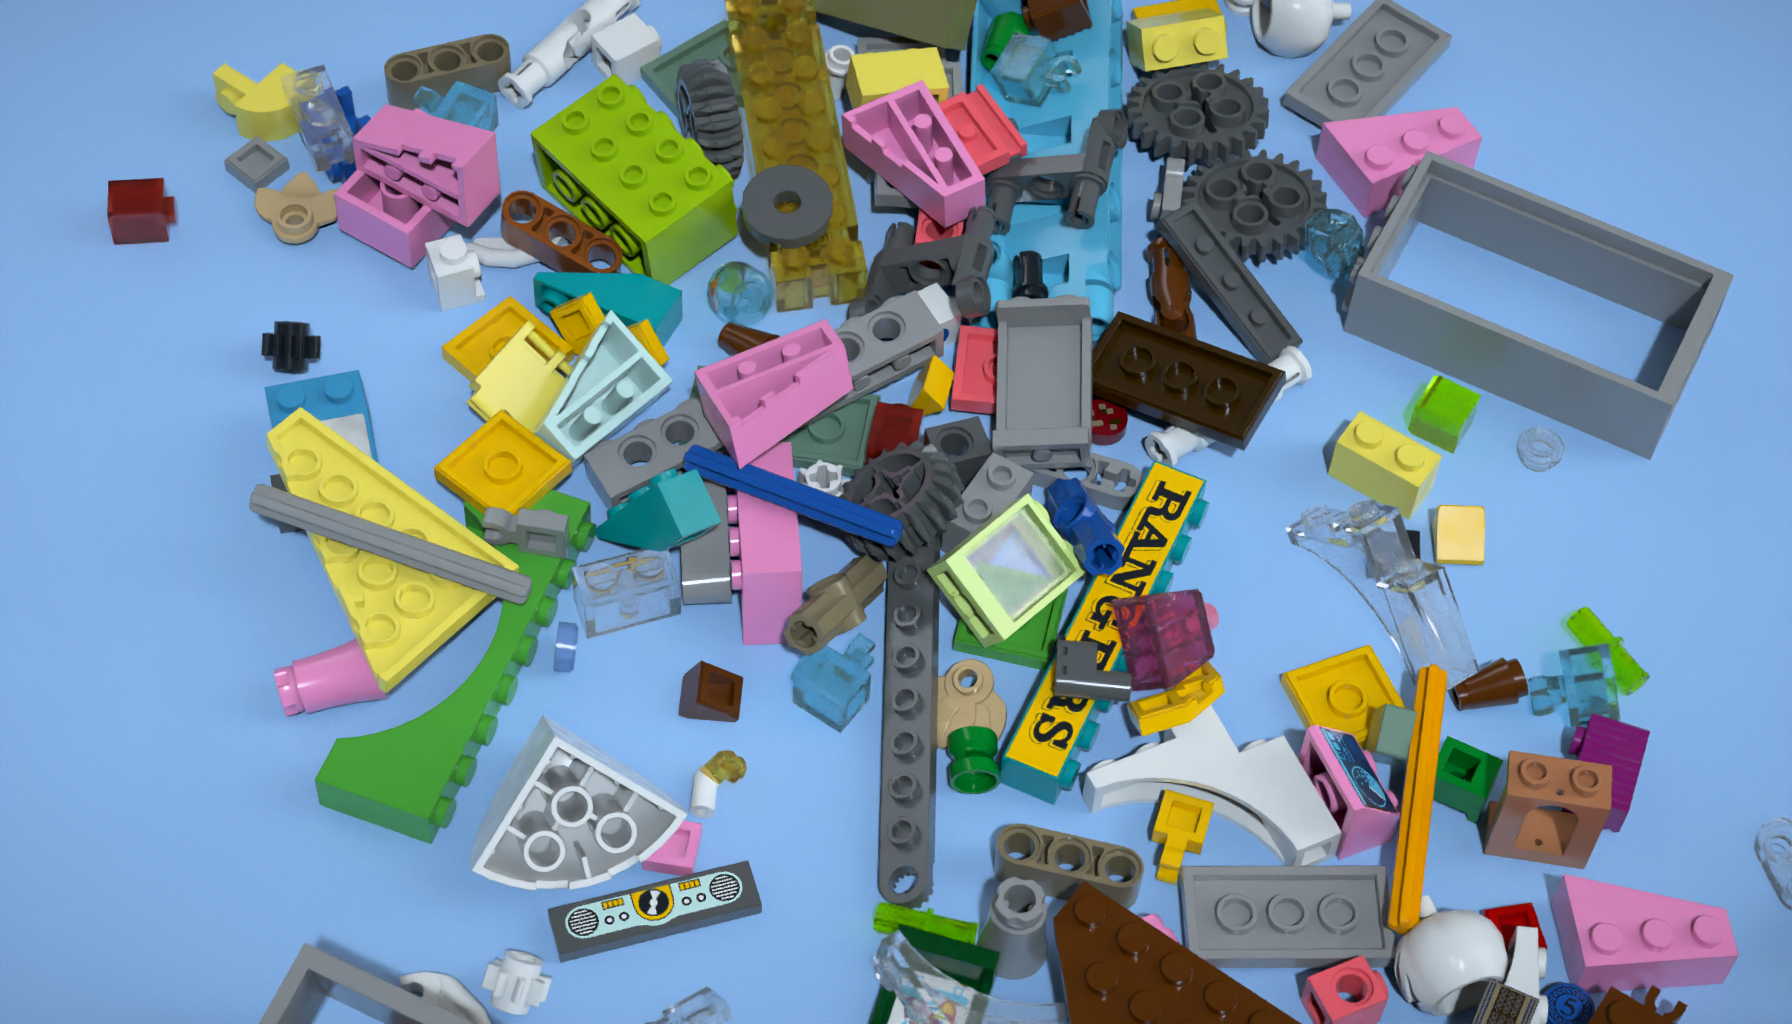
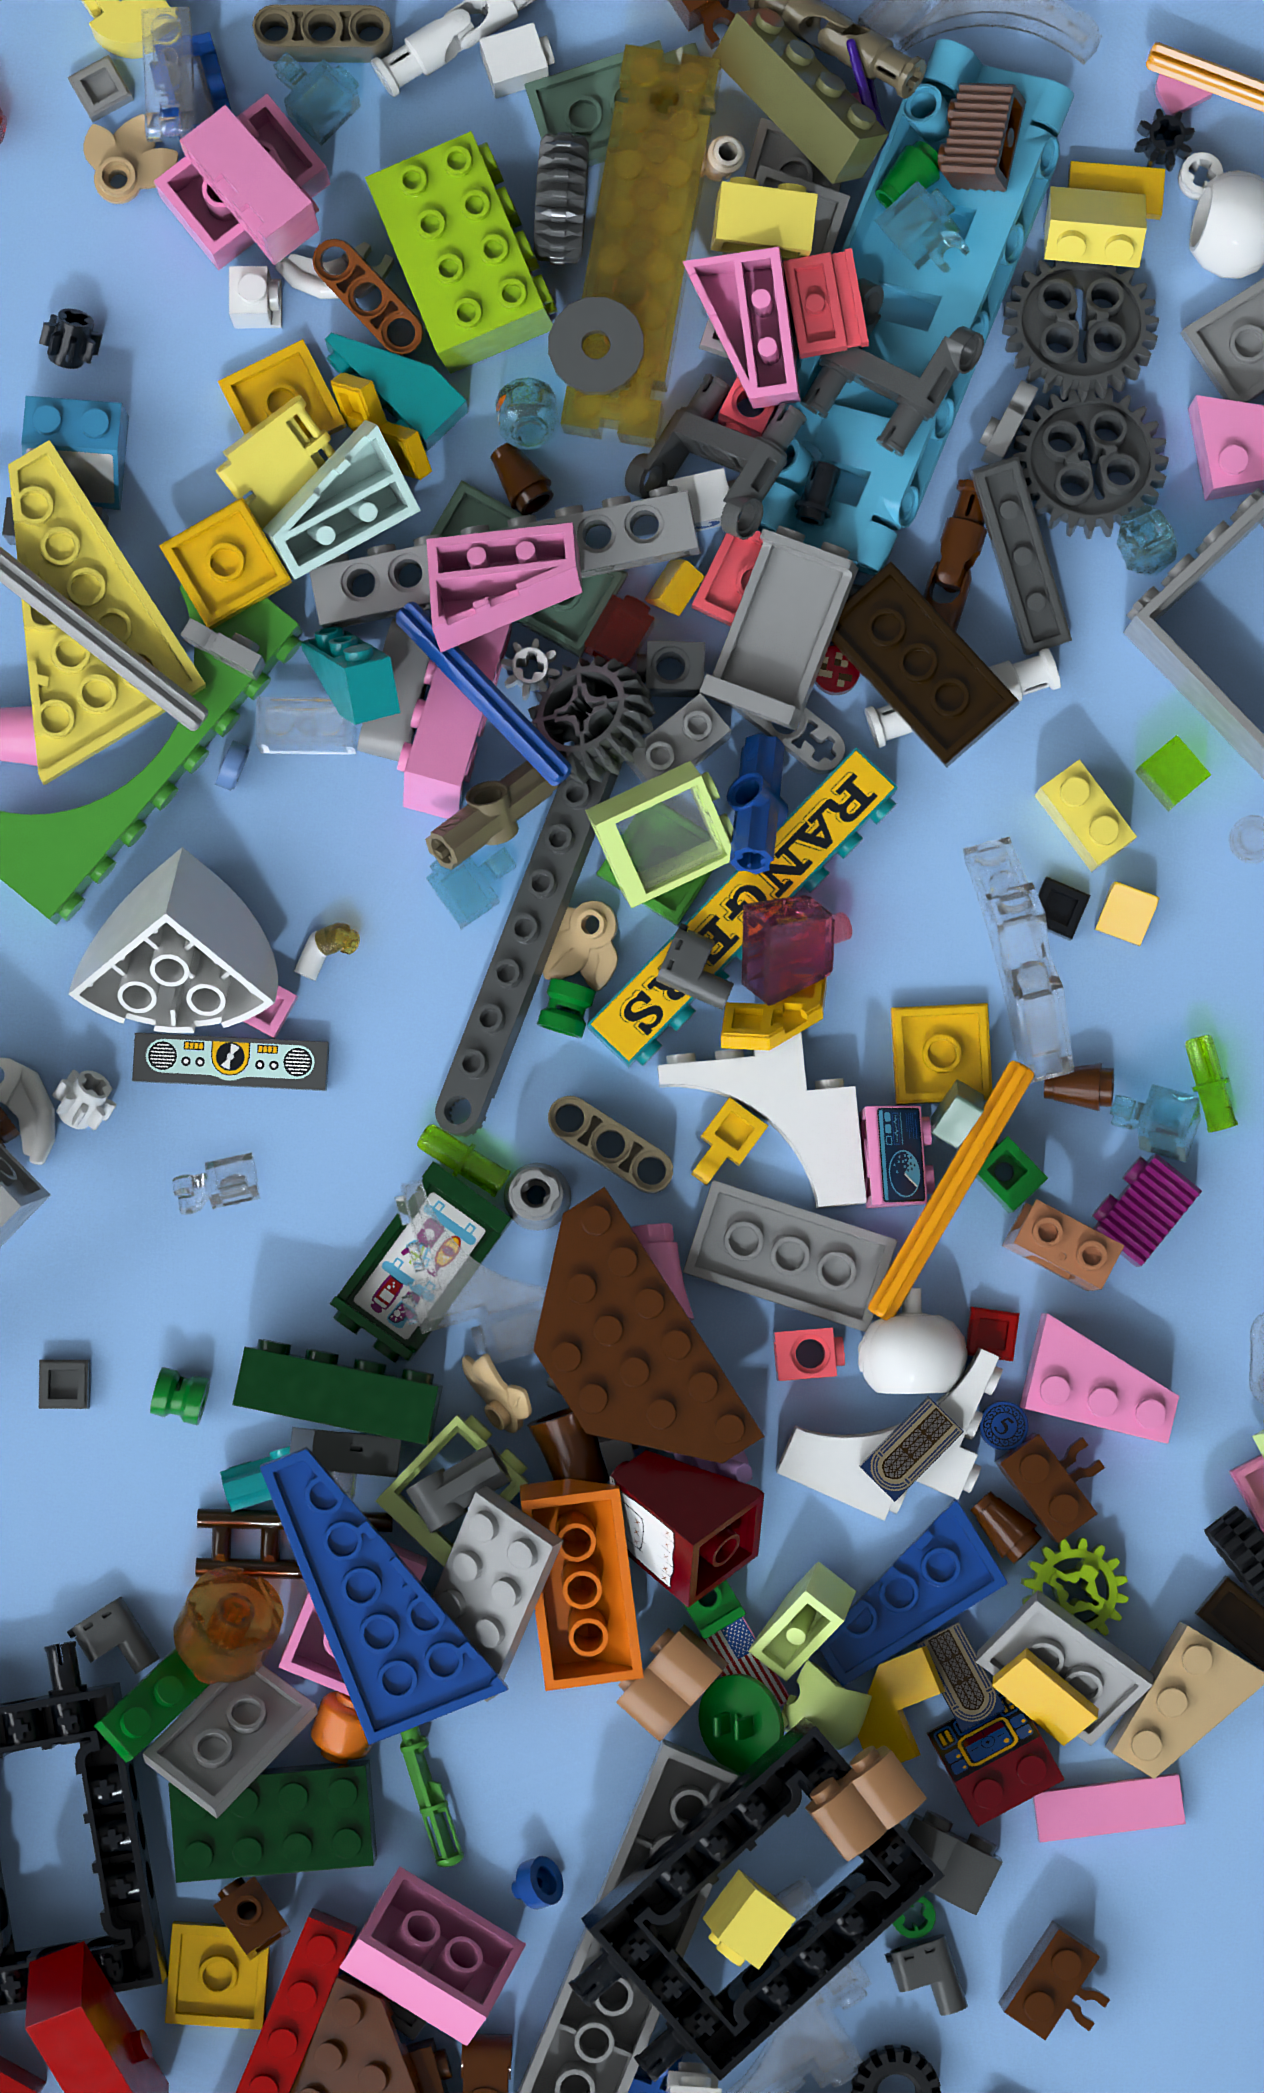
camera: 20 degrees right, 30 degrees up
(710, 694) = (353, 854): reddish brown slope -> none

